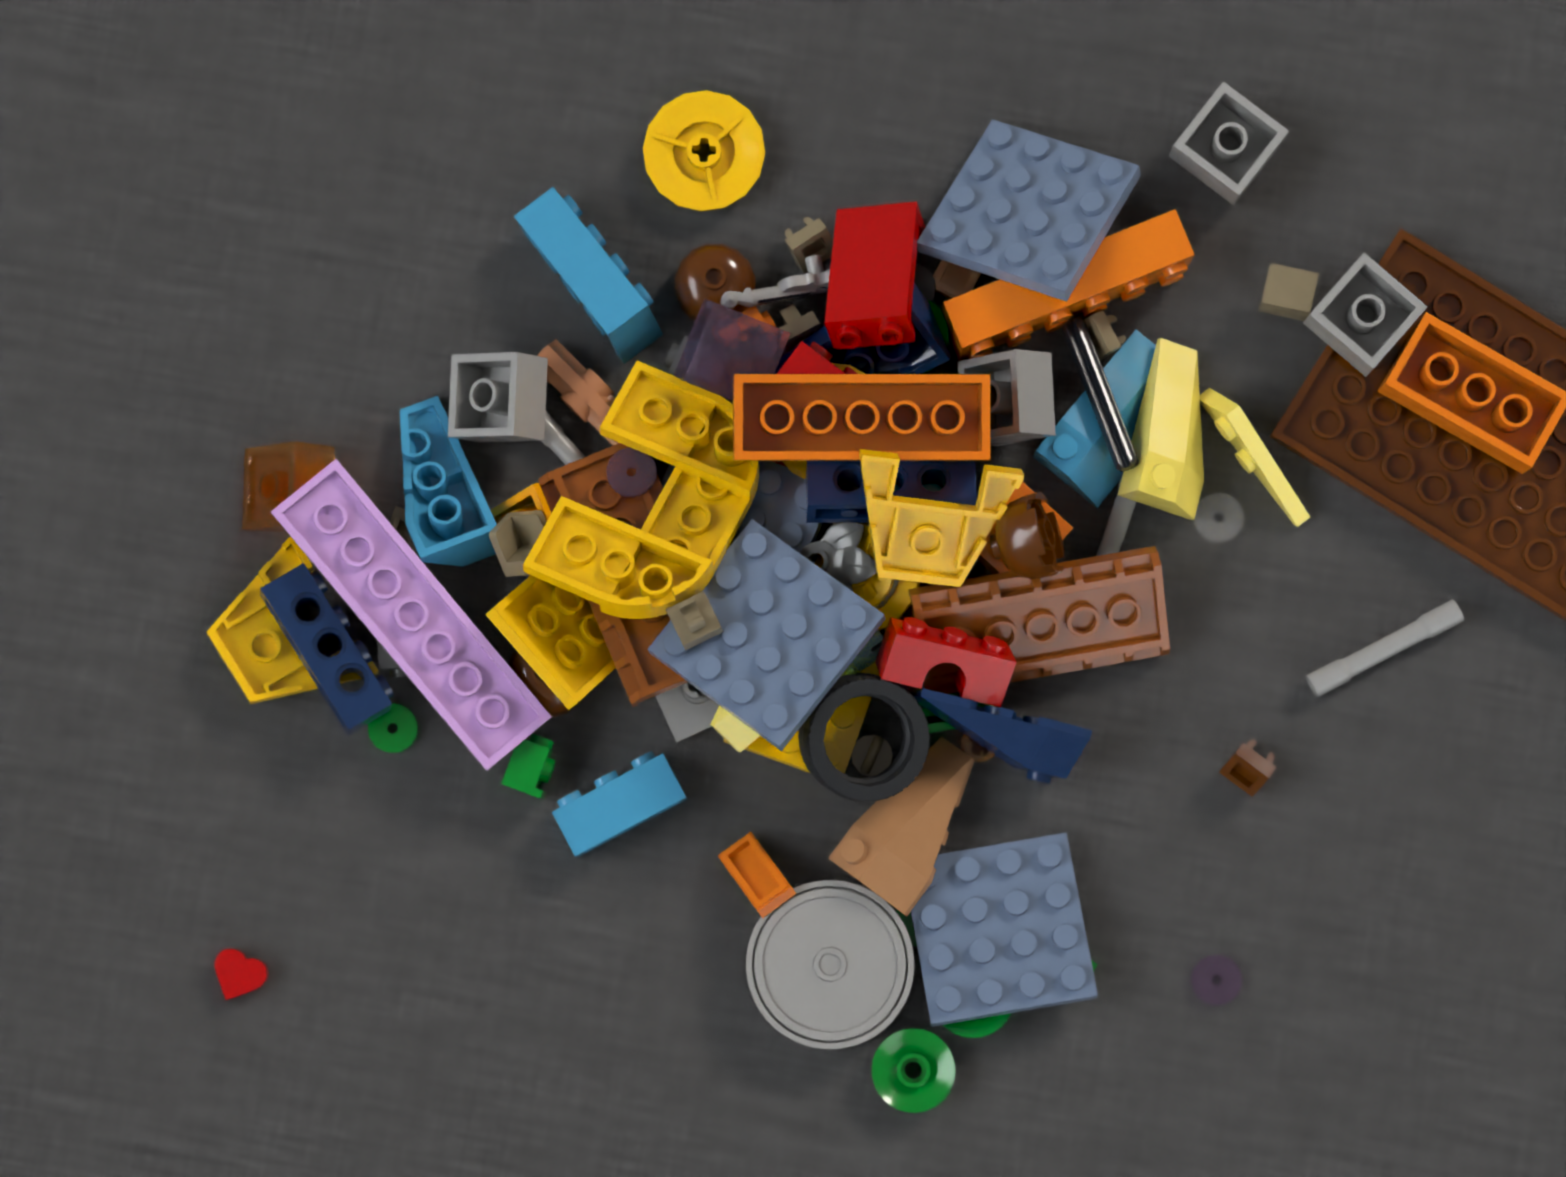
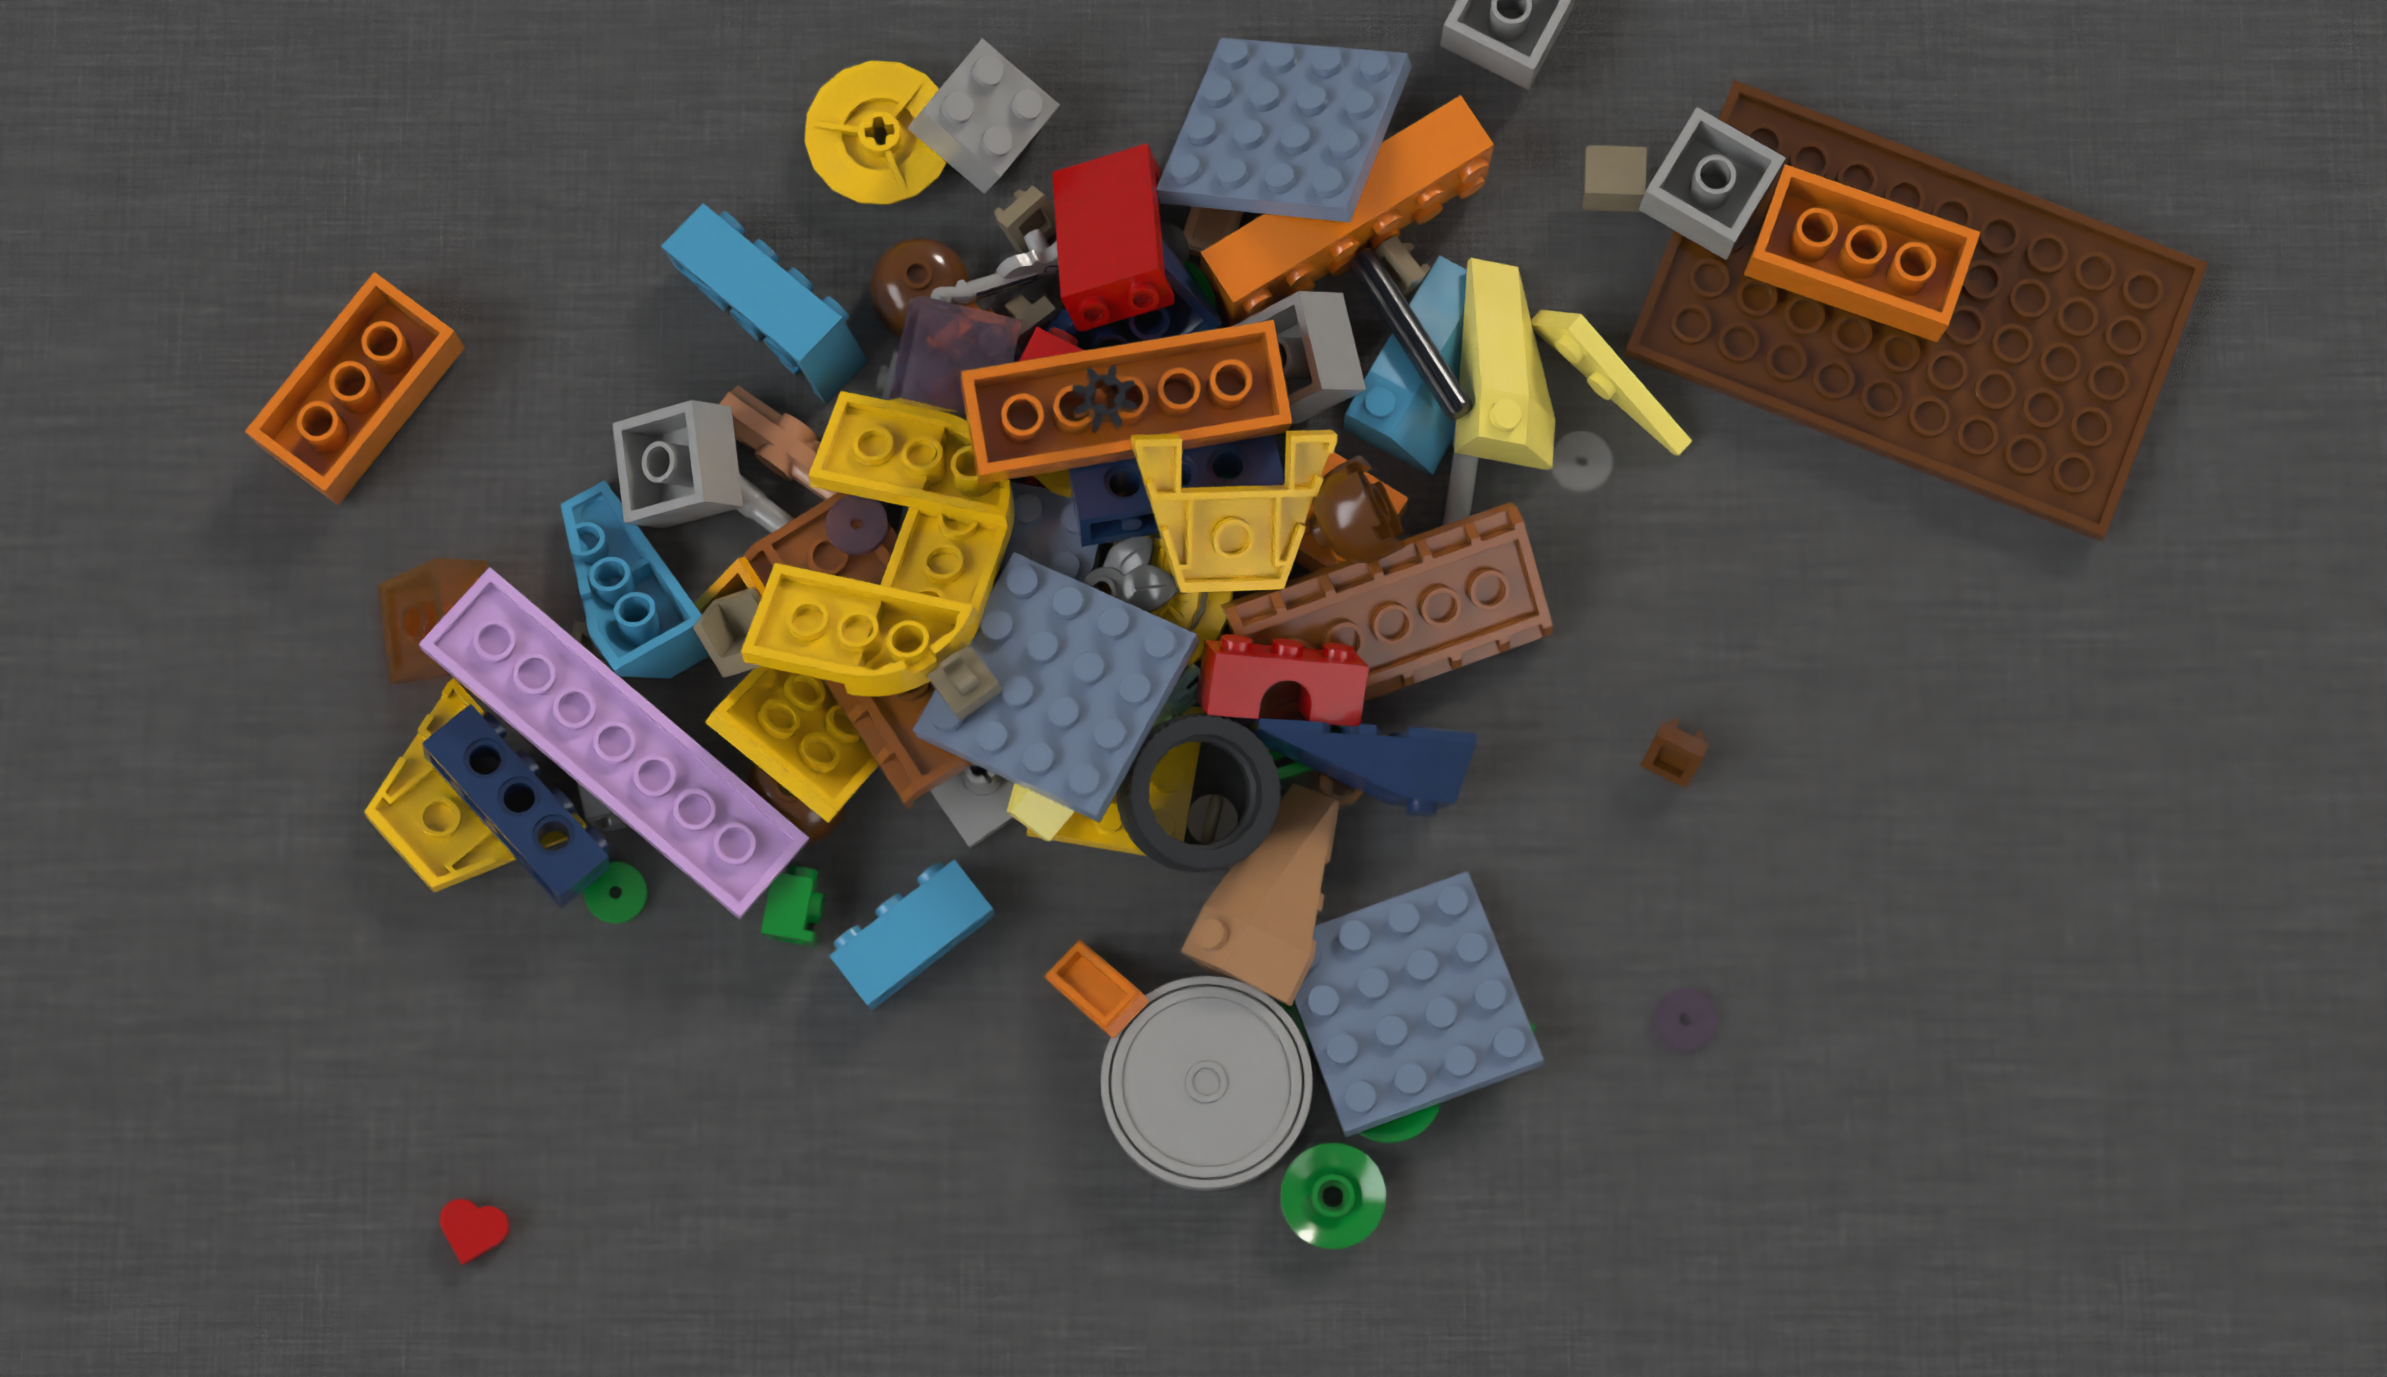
camera: 15 degrees left, 5 degrees down
(252, 289) = (355, 388): none -> orange brick
(789, 154) = (983, 116): none -> light grey brick
(848, 407) = (1108, 384): none -> black gear
(1424, 627) = (1767, 615): light grey piece -> none

